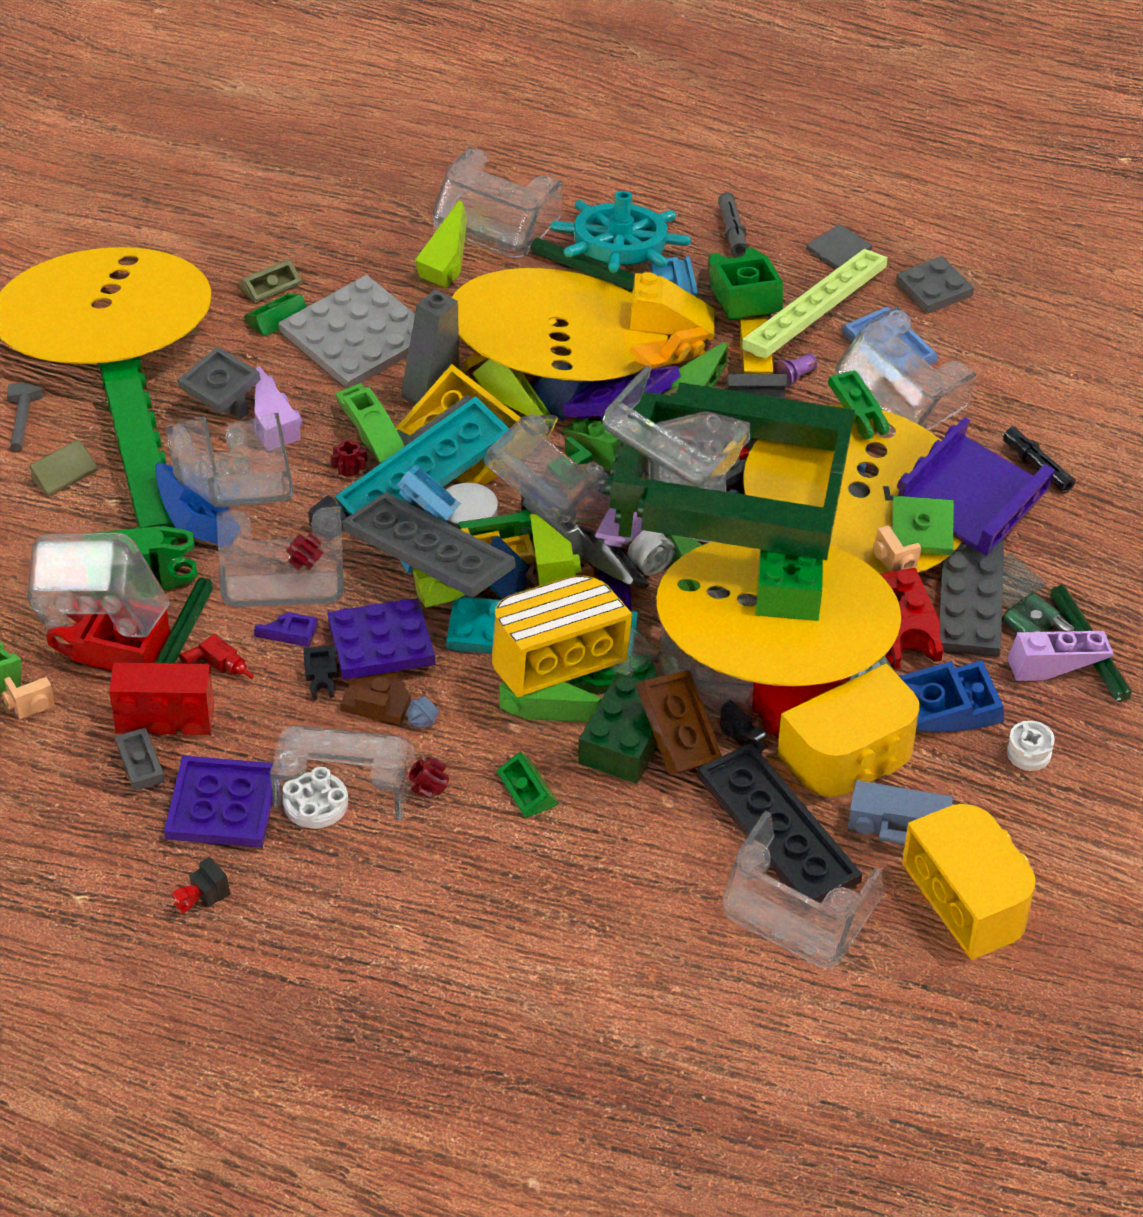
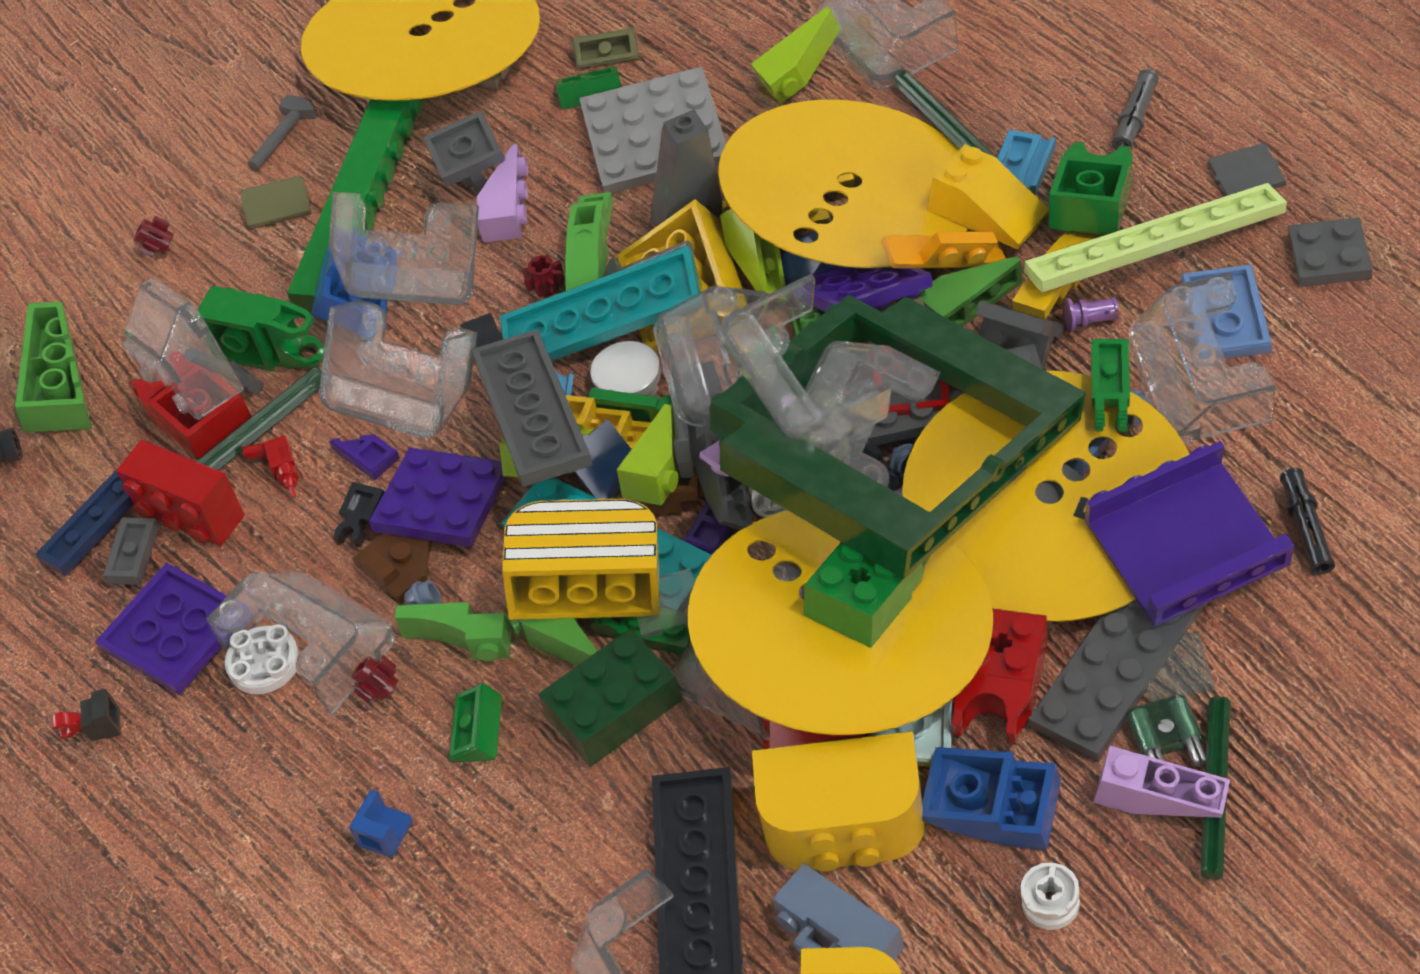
camera: 40 degrees right, 5 degrees up
(28, 698) = (79, 447): light nougat bracket -> none
(85, 745) = (86, 526): none -> dark blue plate
(304, 551) = (419, 371): dark red gear -> none
(429, 494) = (565, 347): dark azure plate -> none
(466, 720) = (483, 634): none -> bright green slope
(508, 878) = (379, 826): none -> blue panel
(620, 233) = (996, 89): teal piece -> none
(678, 721) = (652, 714): reddish brown plate -> none
(739, 726) = (729, 737): black plate -> none
(892, 553) = (1032, 598): light nougat bracket -> none
(924, 522) = (1090, 563): bright green plate -> none

